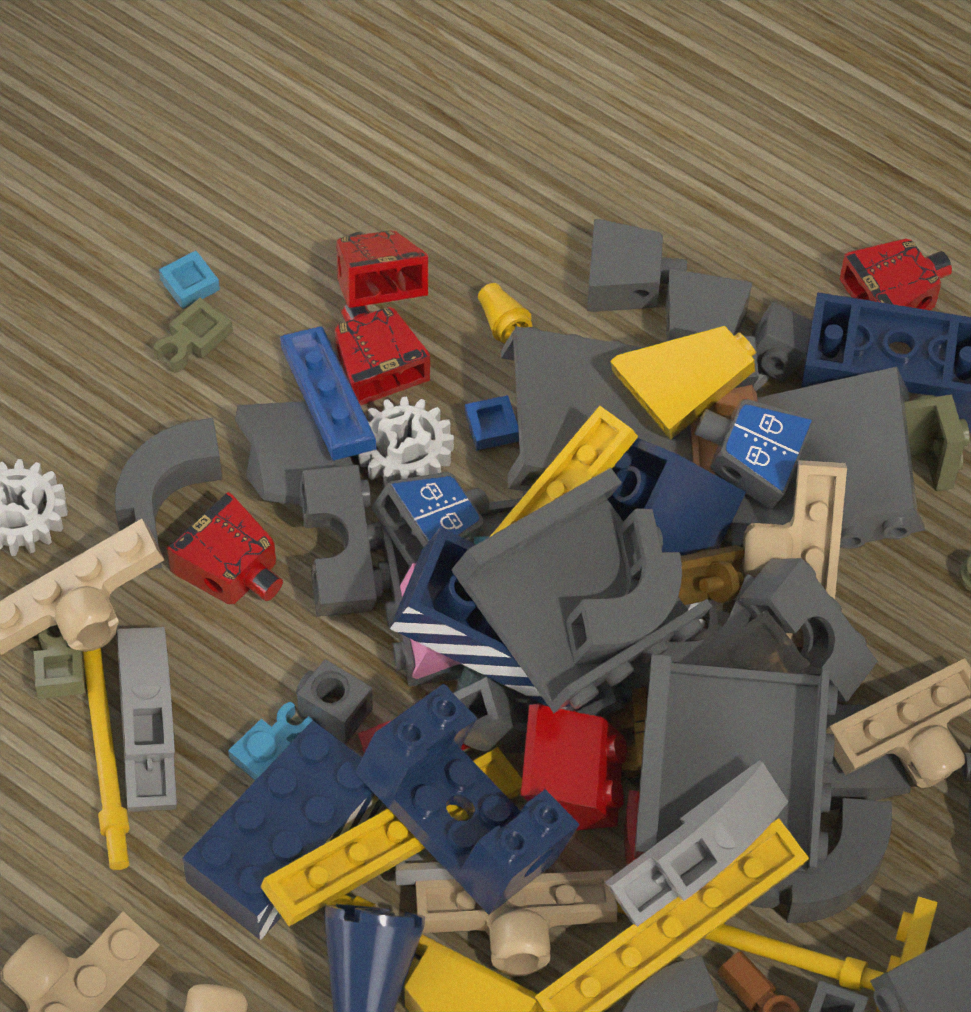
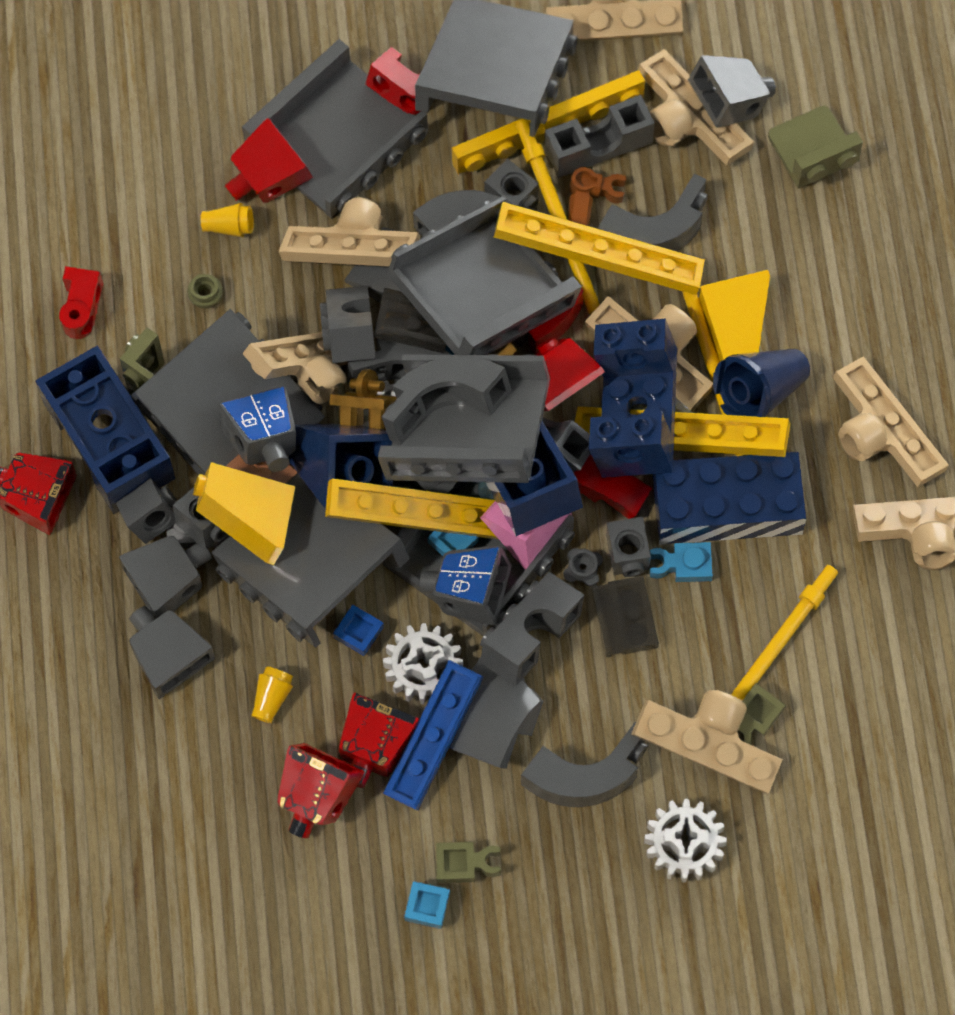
camera: 130 degrees left, 10 degrees up
(146, 719) = (737, 631): light grey slope -> none
(226, 554) = (595, 691): red torso -> none
(271, 642) = (625, 616): none -> clear smoke plate
(359, 641) = (583, 557): none -> dark grey plate
(701, 847) = (534, 249): light grey slope -> none
(844, 916) = (509, 178): none -> dark grey brick

